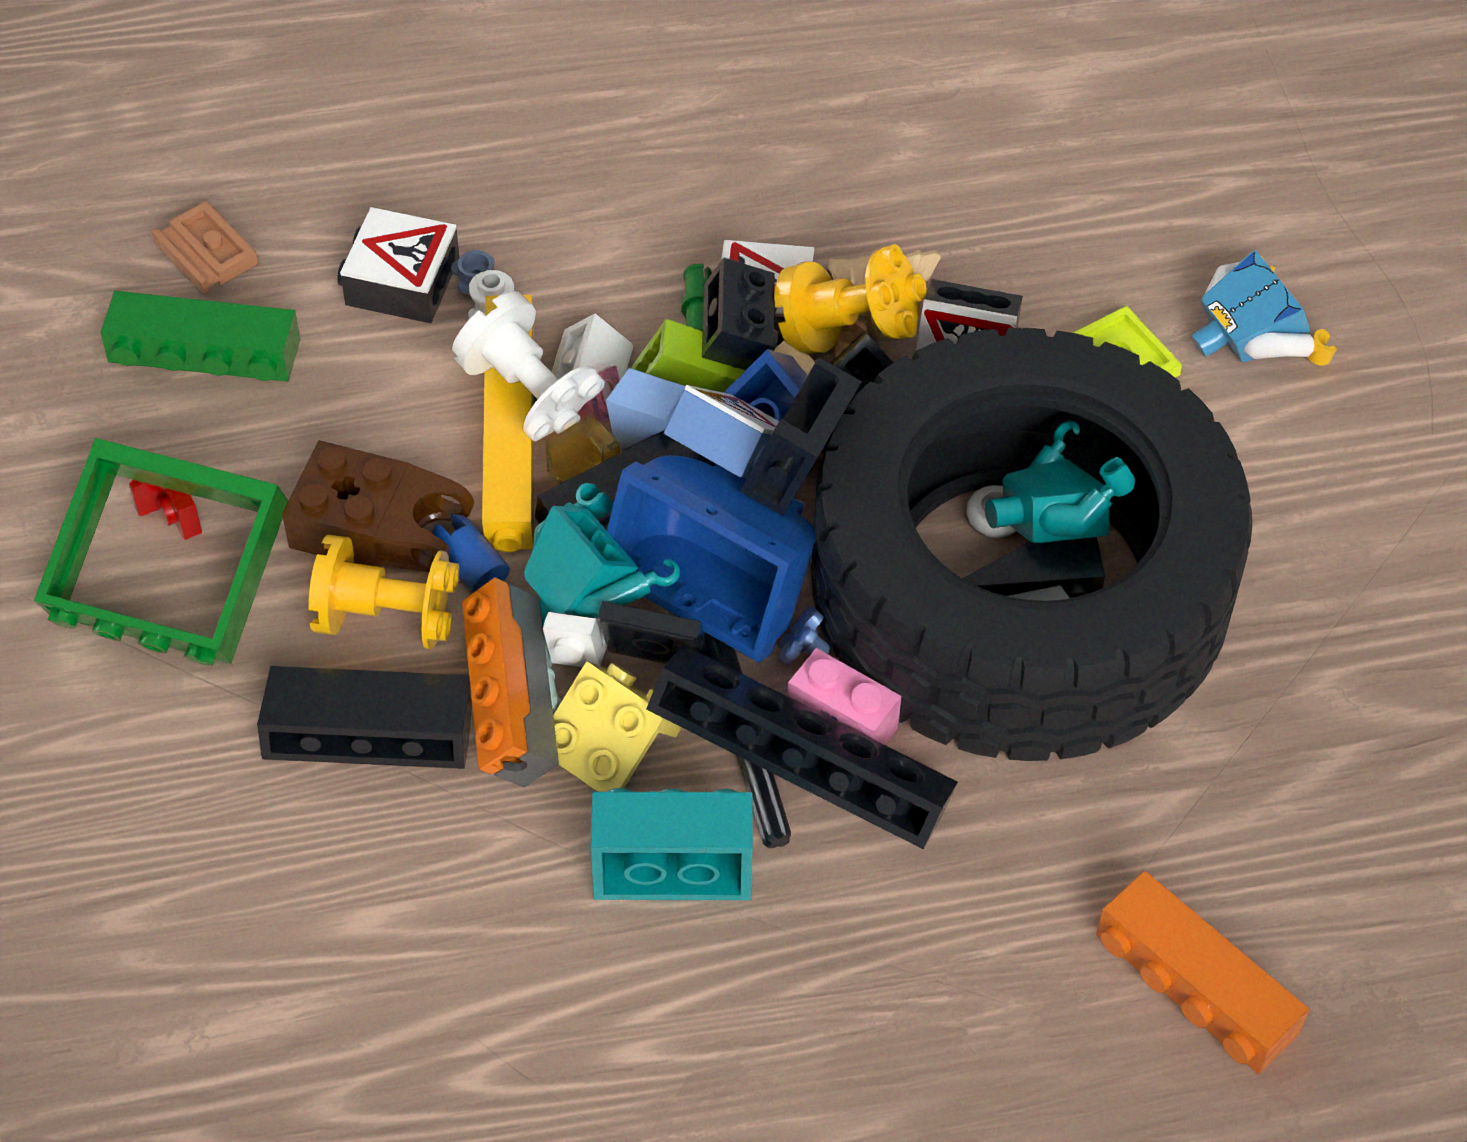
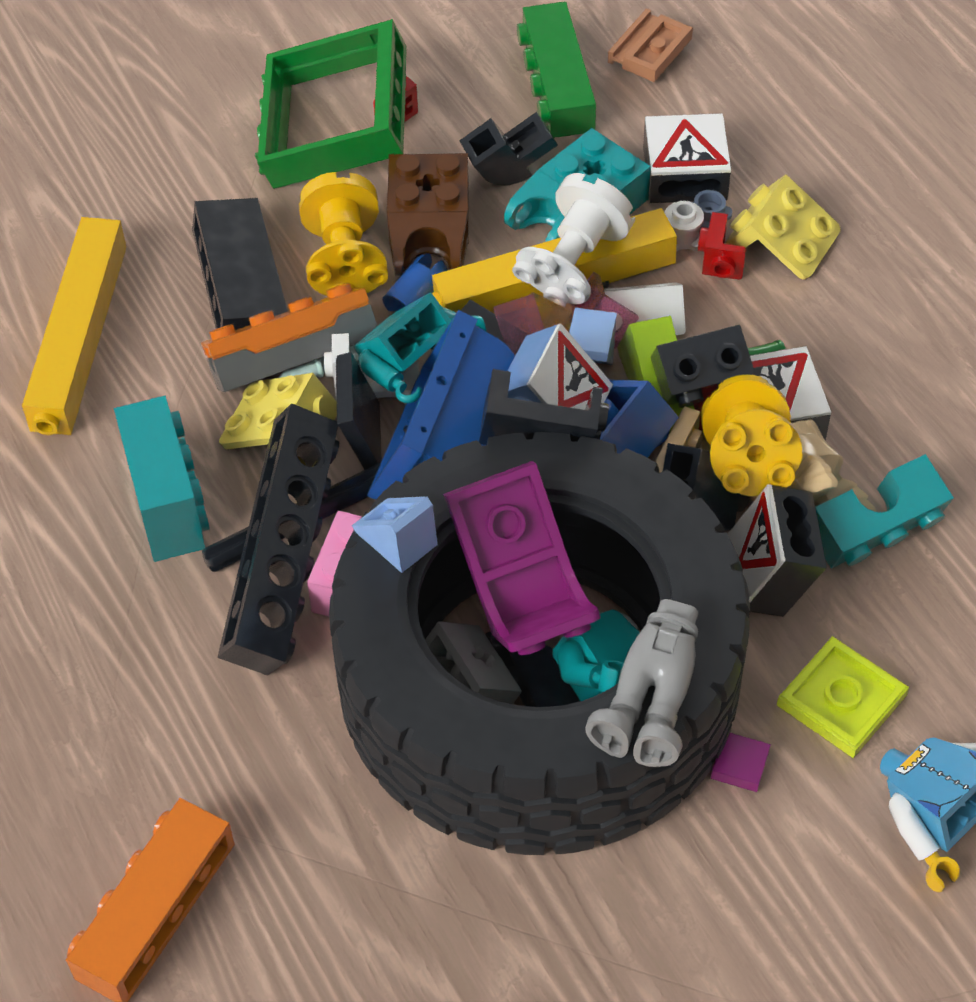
camera: 75 degrees right, 0 degrees up
(314, 403) = (506, 157): none -> black brick
(378, 903) = (74, 327): none -> yellow brick
(407, 364) = (588, 155): none -> teal brick
(527, 216) = (787, 225): none -> light yellow bracket
(541, 279) = (720, 258): none -> red bracket
(612, 450) = (518, 320): none -> clear pink bracket
(926, 225) = (912, 498): none -> teal arch
(933, 571) = (400, 530): none -> light blue slope
(987, 515) = (519, 560): none -> magenta bracket
(1184, 421) = (658, 658): none -> light grey piece

